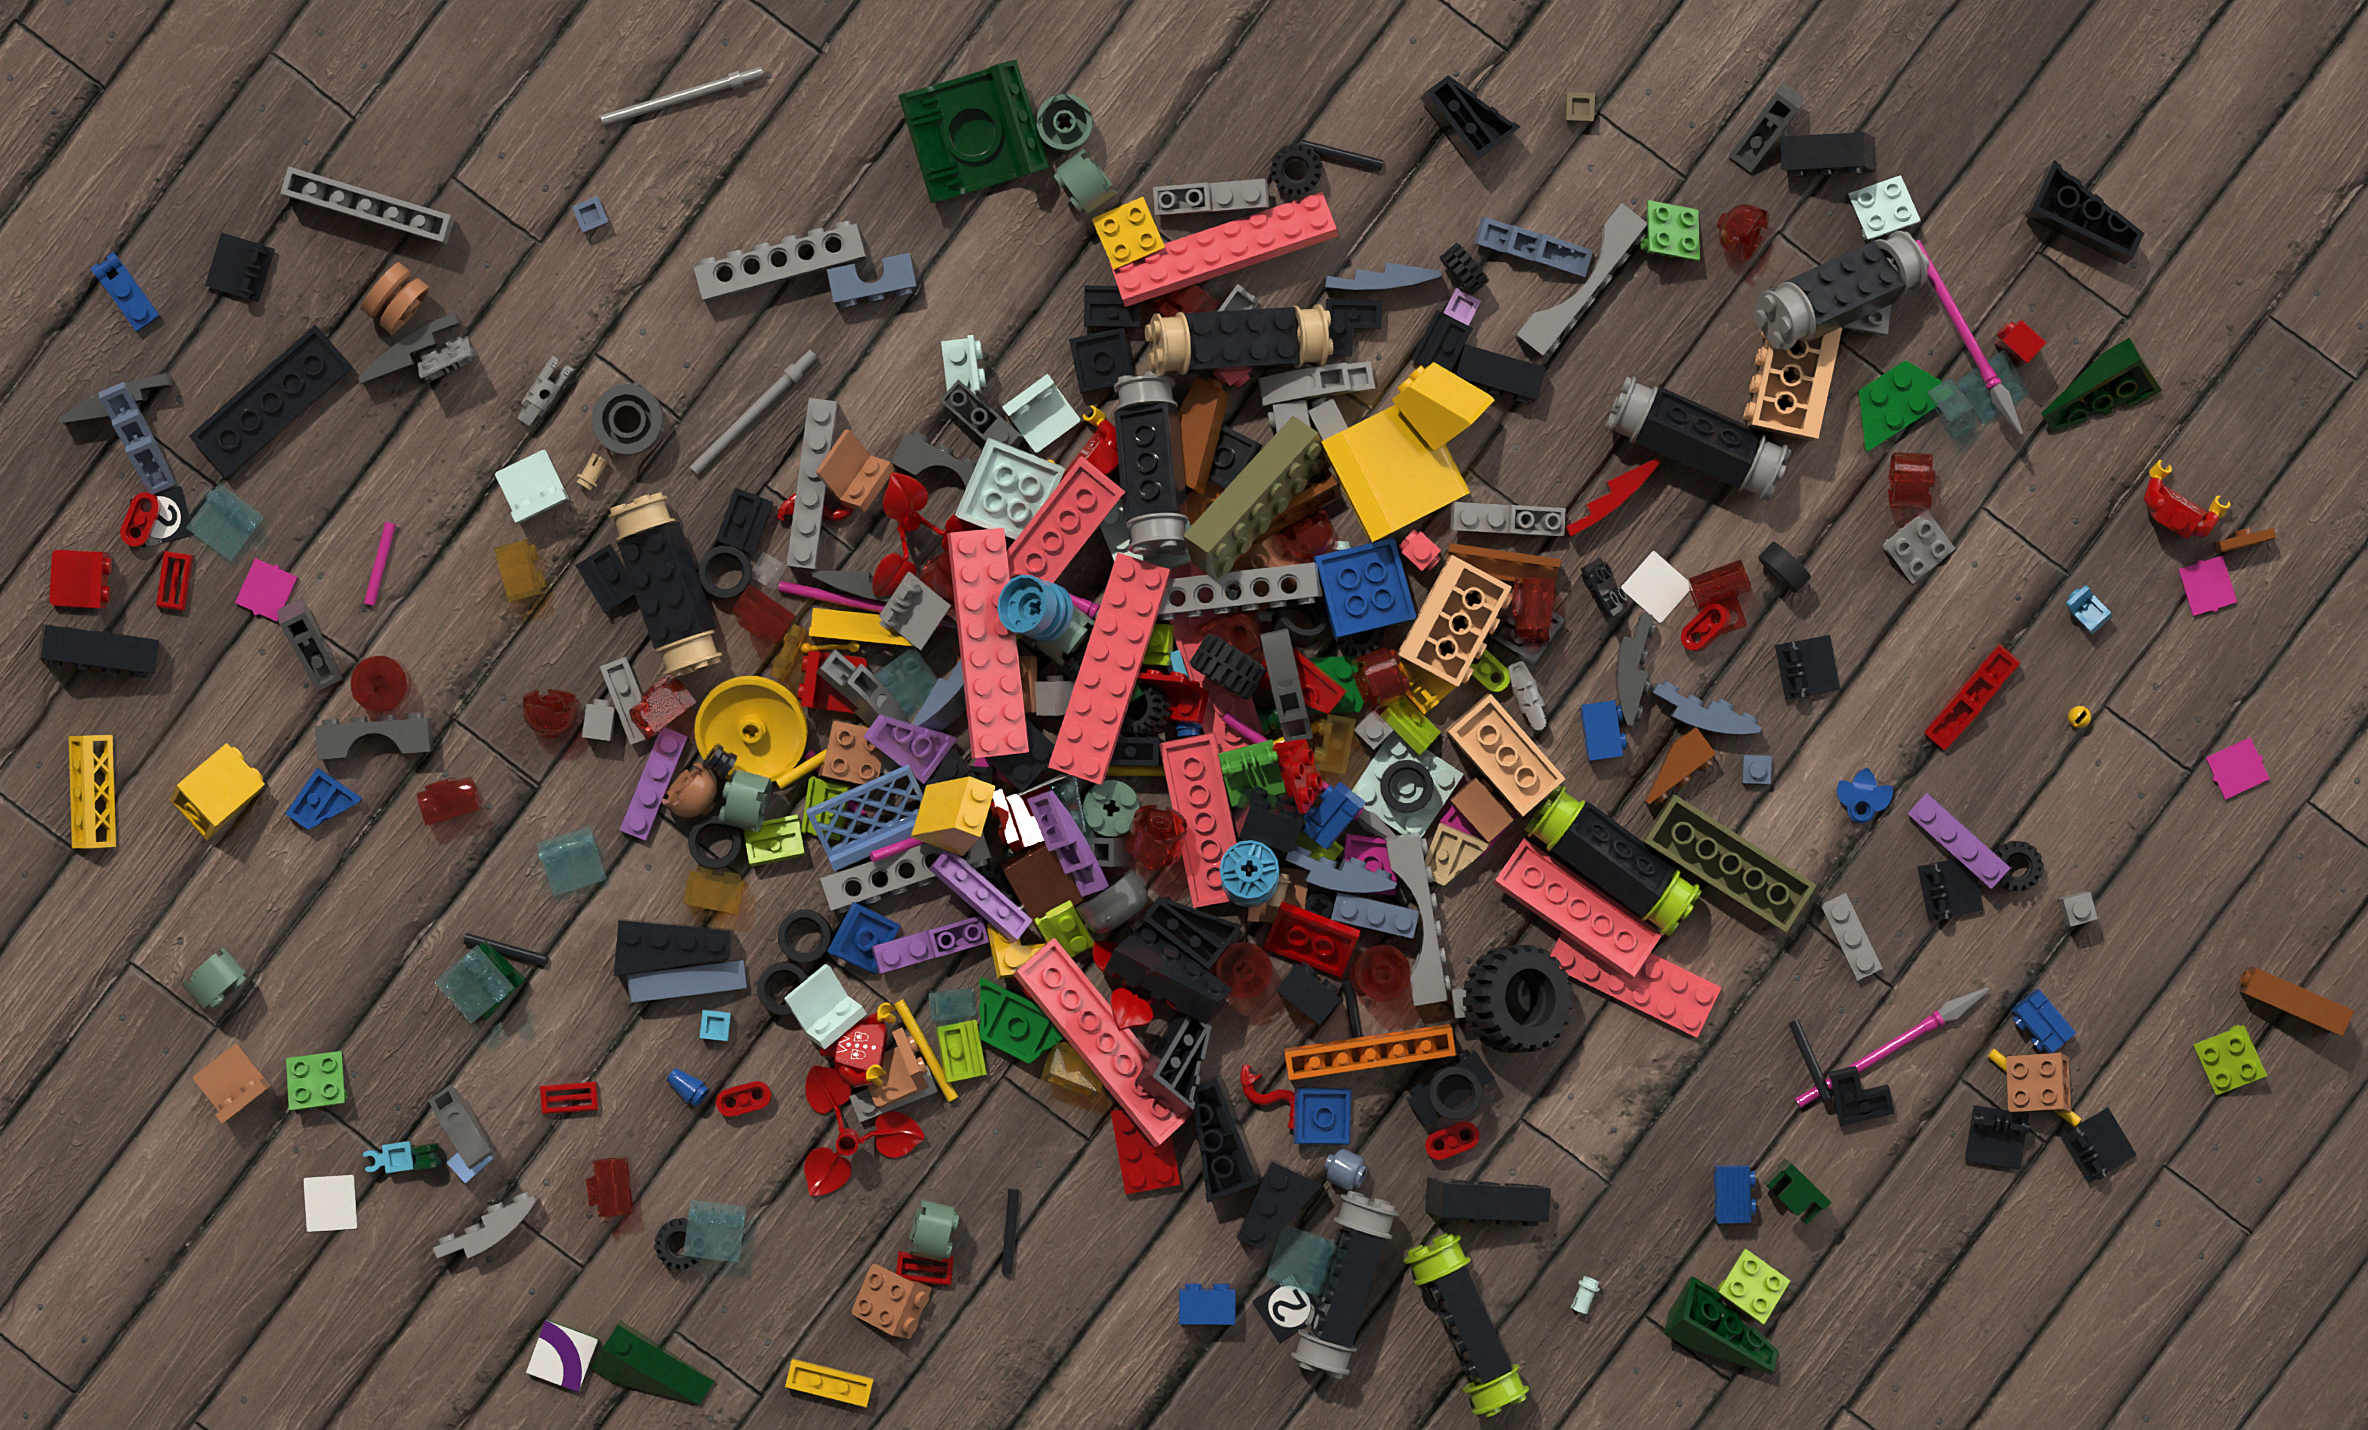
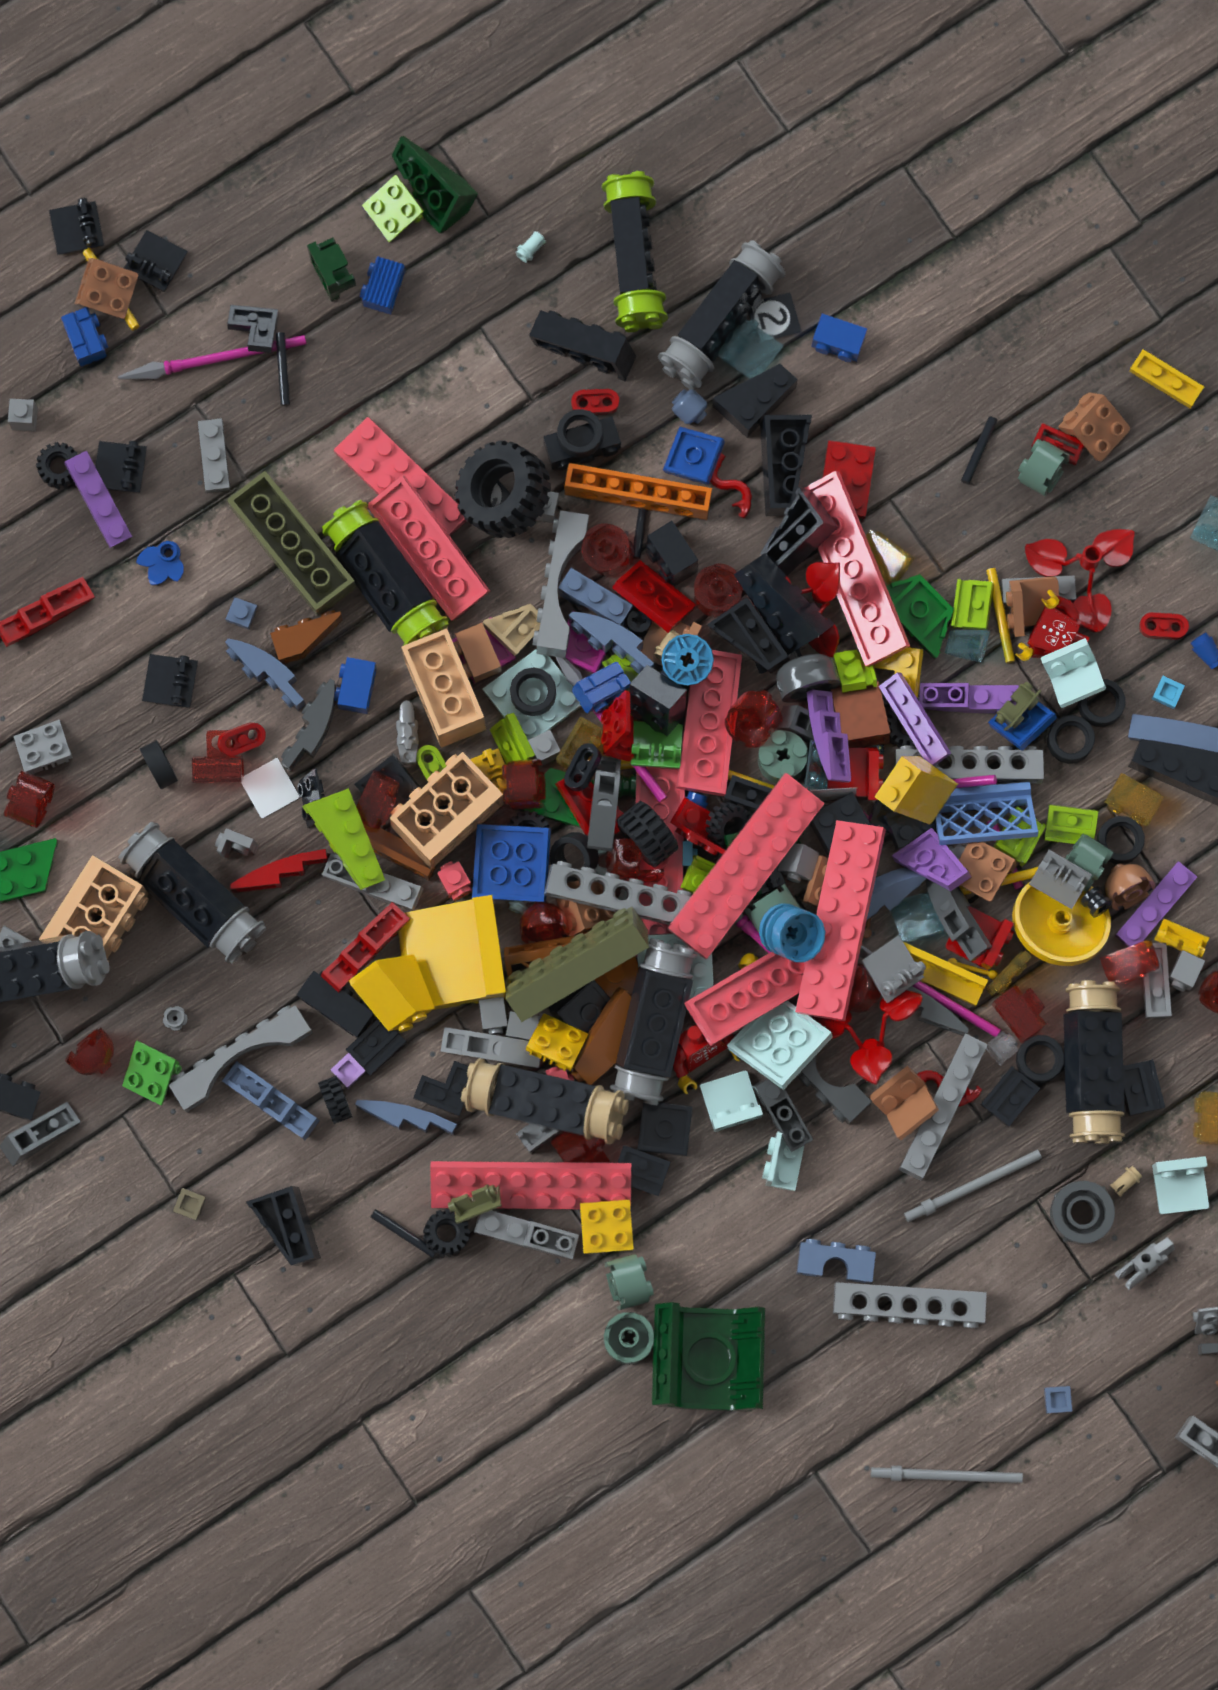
camera: 160 degrees left, 10 degrees down
(615, 756) = (1181, 938): none -> yellow hinge
(765, 770) = (1060, 879): none -> light grey hinge
(868, 958) = (1011, 713): none -> olive hinge
(1073, 571) = (746, 960): none -> yellow hinge
(1248, 410) = (556, 1042): none -> yellow hinge
(1273, 207) = (483, 1200): none -> olive hinge
(1323, 716) = (582, 767): none -> black plate
(1490, 443) = (365, 946): none -> red slope
(1558, 560) = (343, 828): none -> lime wing
(1665, 510) = (239, 842): none -> light grey bracket
(1674, 297) = (181, 1018): none -> light grey plate

